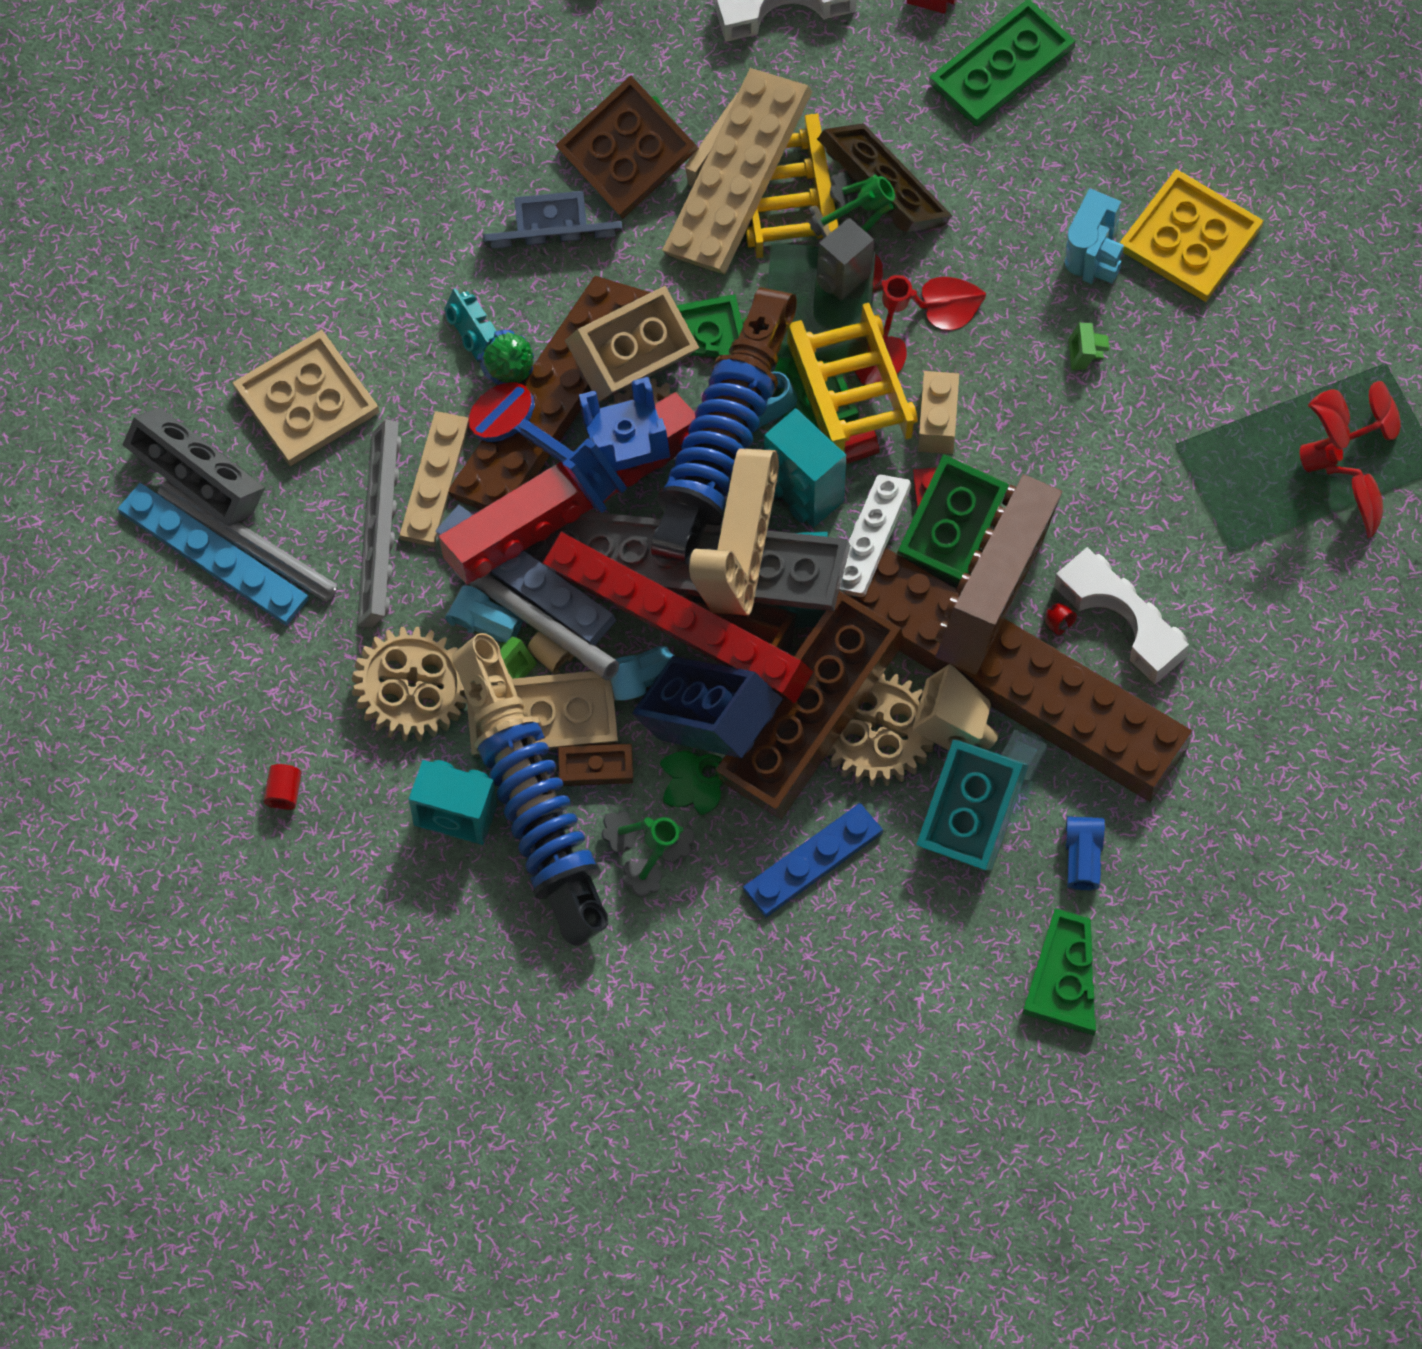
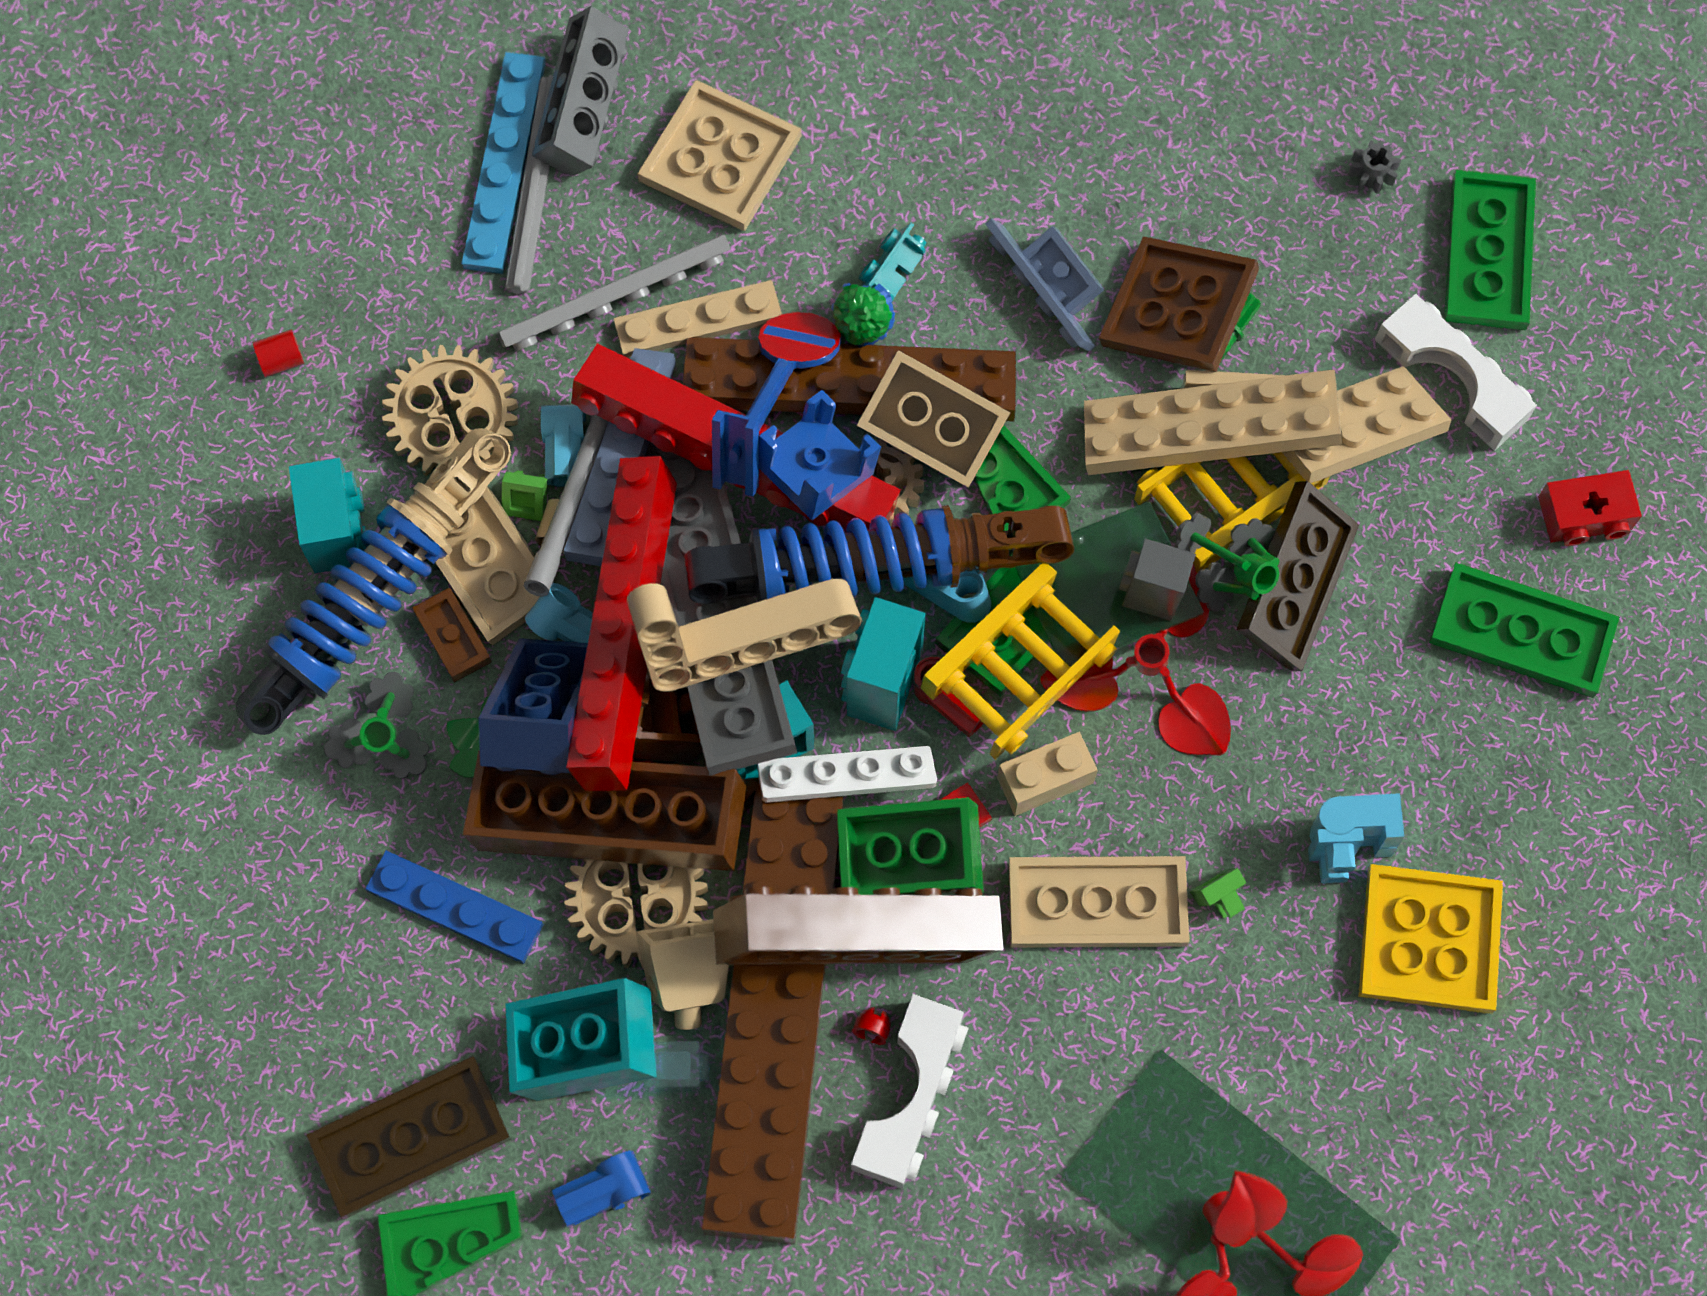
camera: 60 degrees right, 5 degrees up
(800, 56) = (1374, 421): none -> tan plate
(974, 966) = (408, 1137): none -> dark brown plate
(1050, 425) = (1098, 901): none -> tan plate

